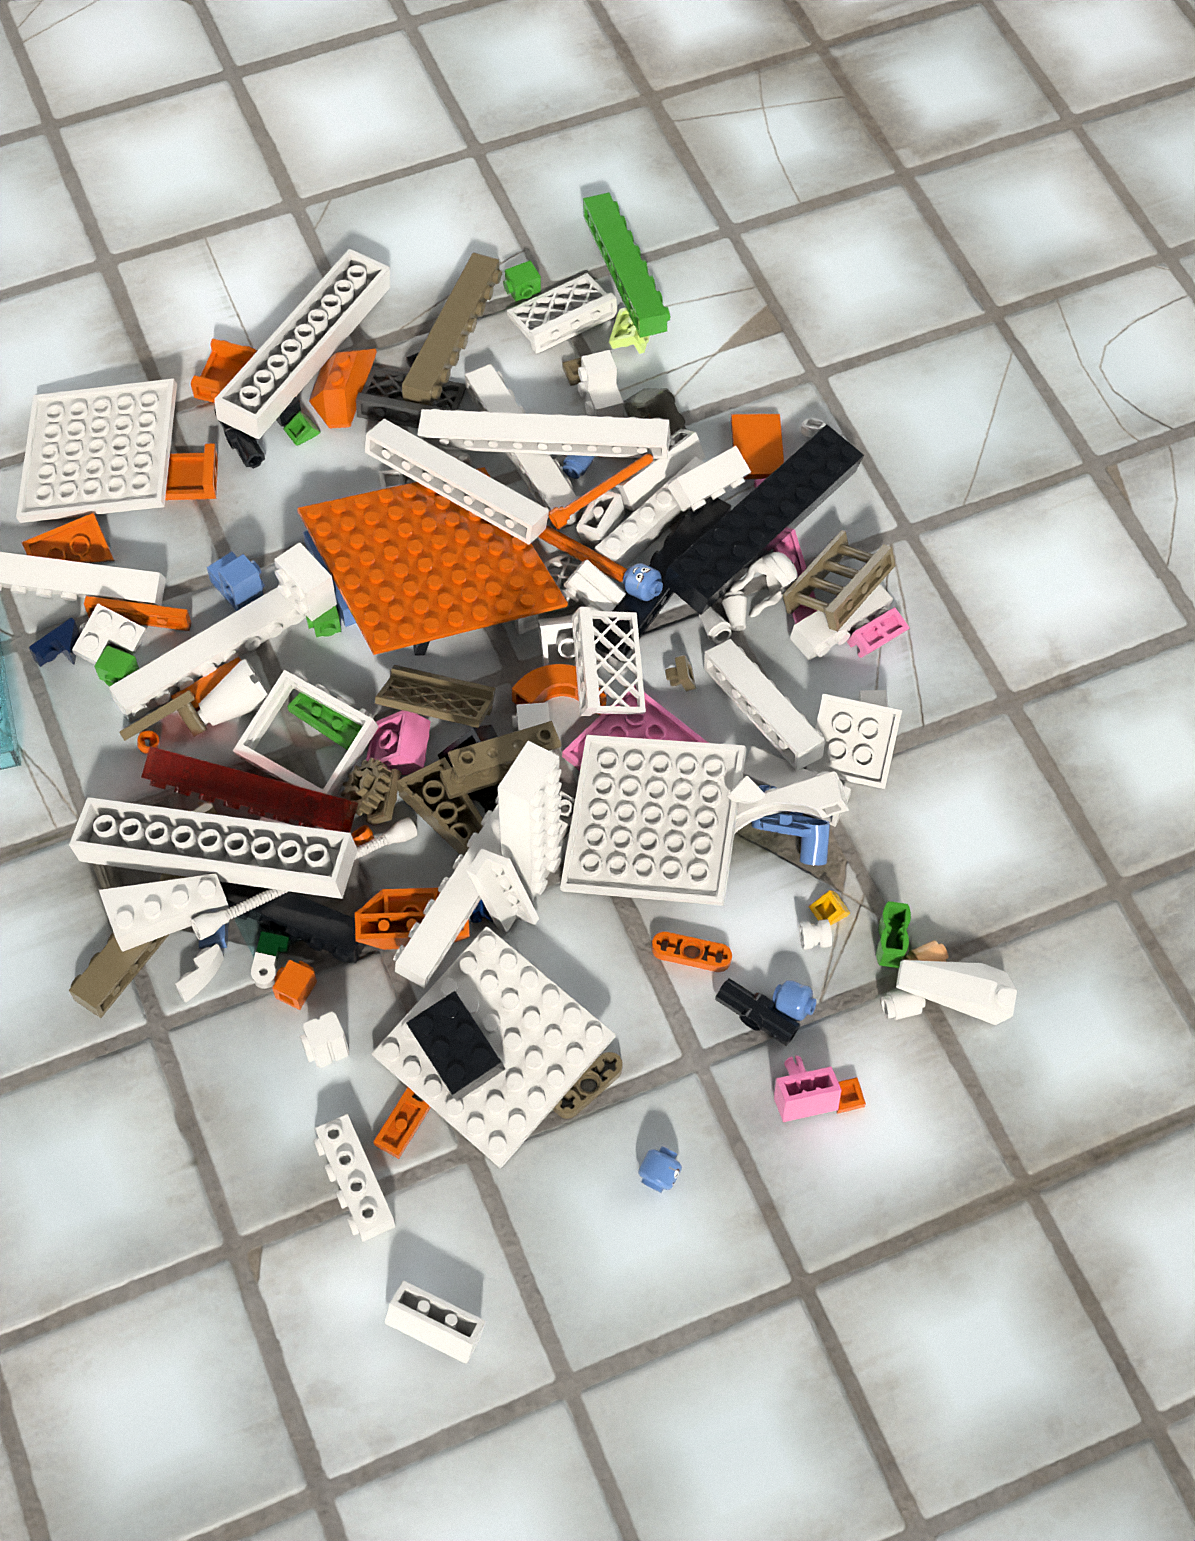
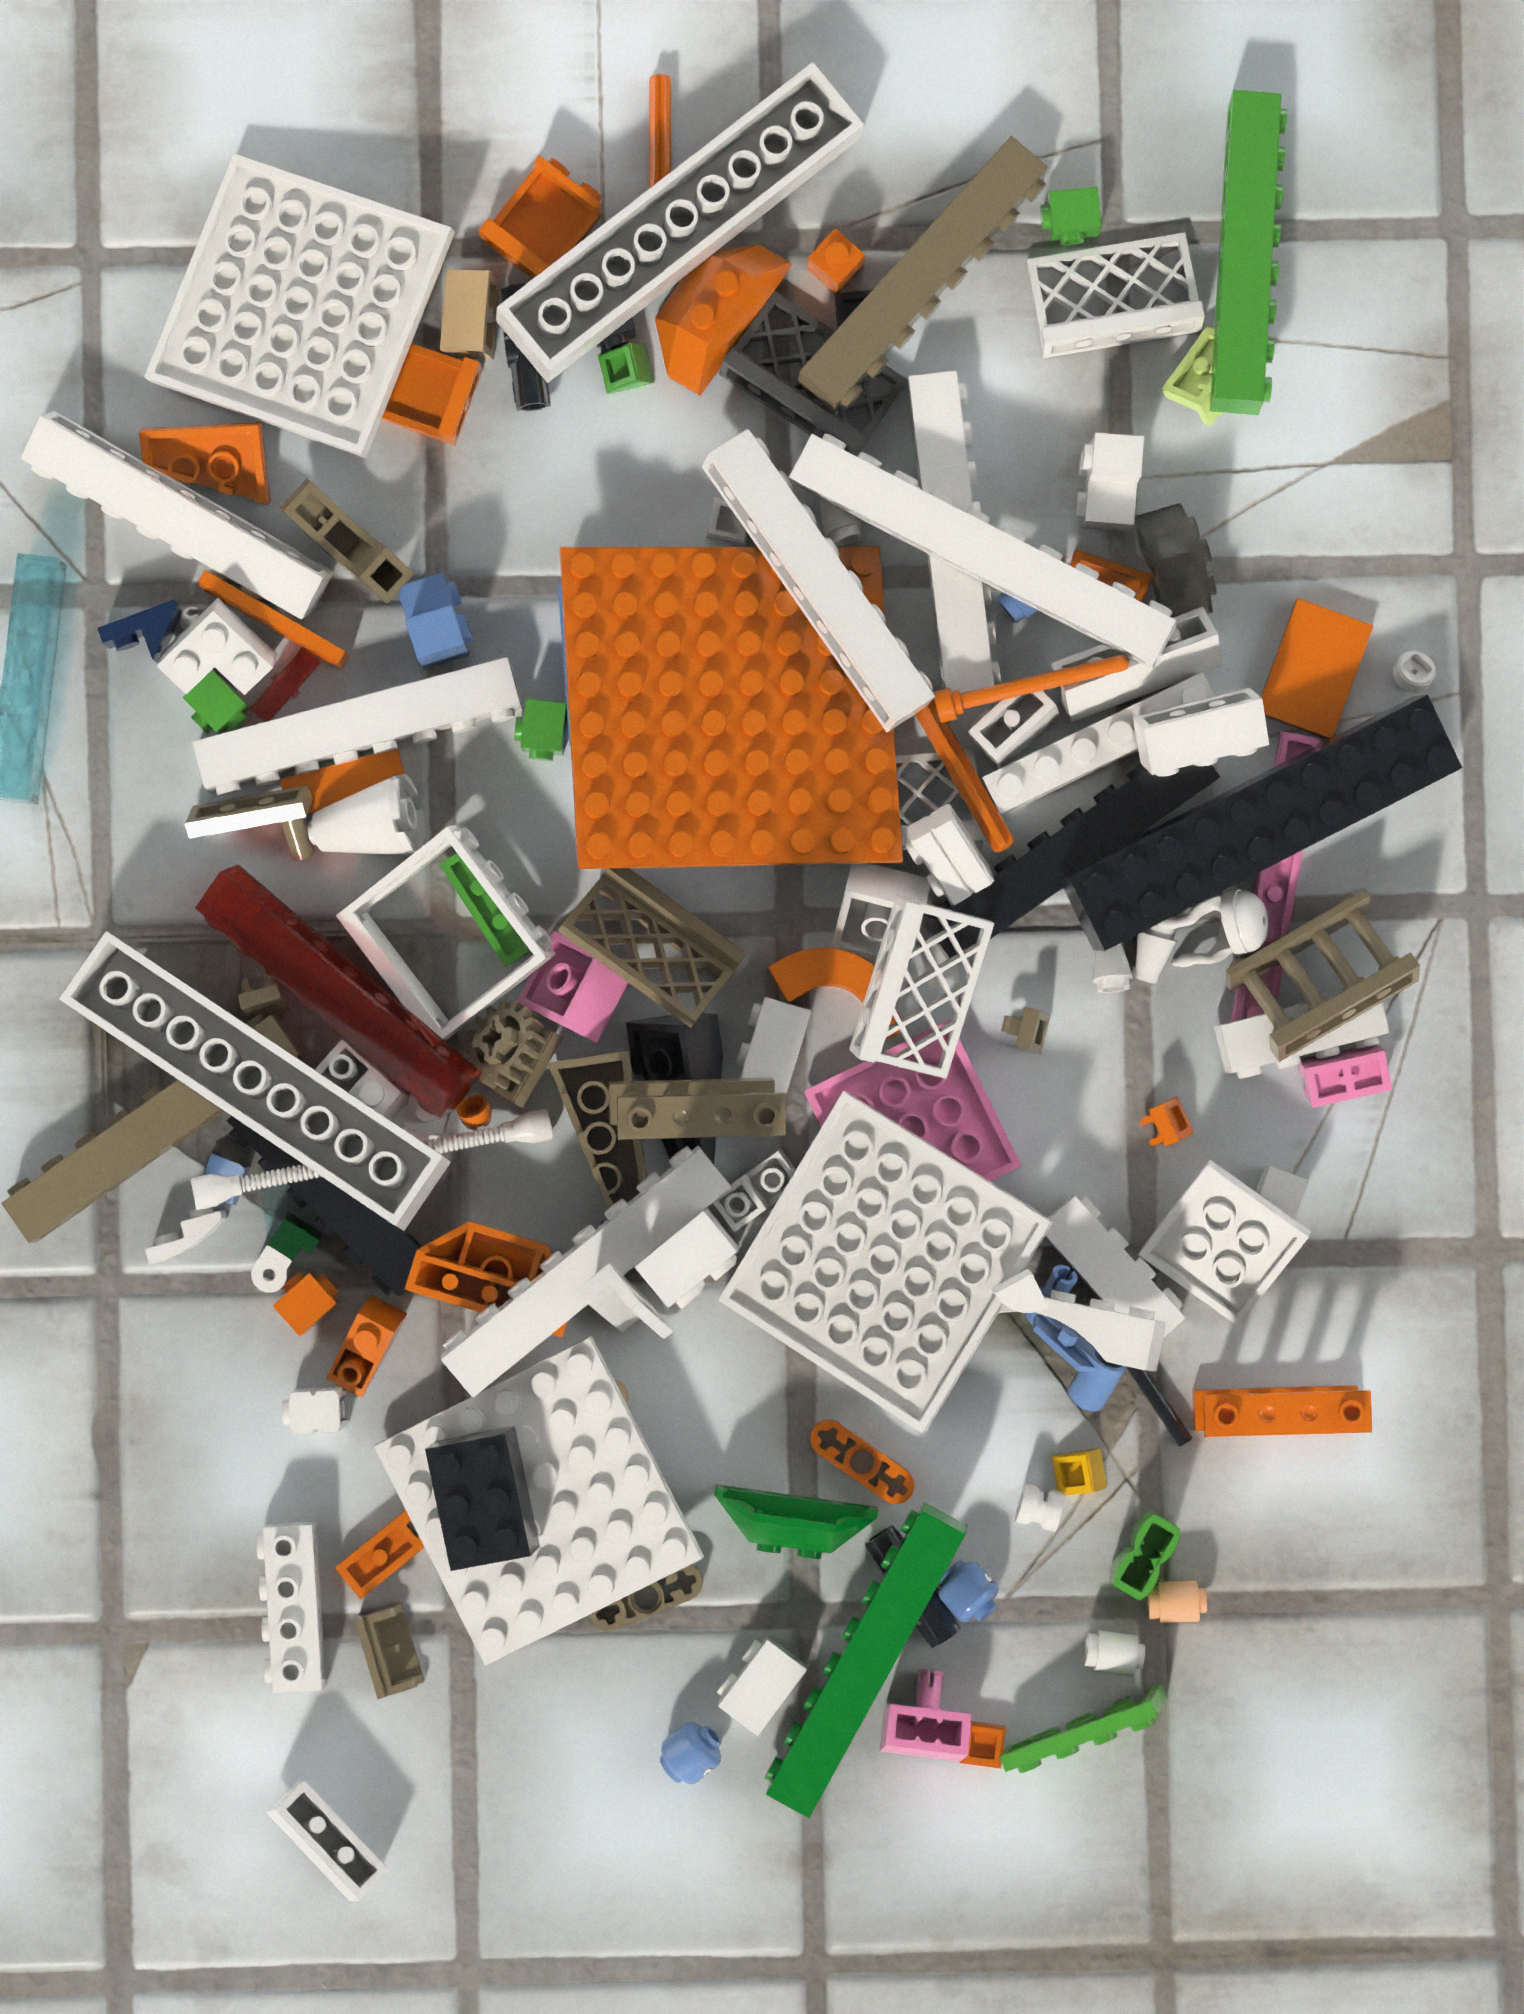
camera: 20 degrees right, 25 degrees up
(153, 741) = (232, 846): orange hinge -> none
(158, 644) = (285, 685): none -> clear red pin
(160, 908) = (146, 1138): white wedge -> none
(172, 562) = (346, 541): none -> dark tan arch
(199, 426) = (470, 313): none -> tan hinge
(273, 307) = (659, 127): none -> orange axle
(305, 582) = (526, 690): white brick -> none
(344, 993) = (366, 1345): none -> orange slope
(400, 339) = (836, 261): none -> orange brick
(429, 1182) = (389, 1650): none -> dark tan hinge
(571, 370) = (1092, 417): dark tan tile -> none
(643, 582) = (1026, 872): medium blue head -> none
(662, 1000) = (793, 1520): none -> green wedge
(687, 1109) = (761, 1684): none -> white brick
(748, 1061) = (866, 1659): none -> green brick
(764, 704) = (1120, 1134): white brick -> none
(789, 691) = (1170, 1122): none -> orange tile
(857, 850) = (1161, 1405): none -> black bar
(914, 1047) = (1085, 1728): none -> bright green wing
(934, 817) = (1282, 1410): none -> orange fence
(961, 986) = (1211, 1667): white wedge -> none

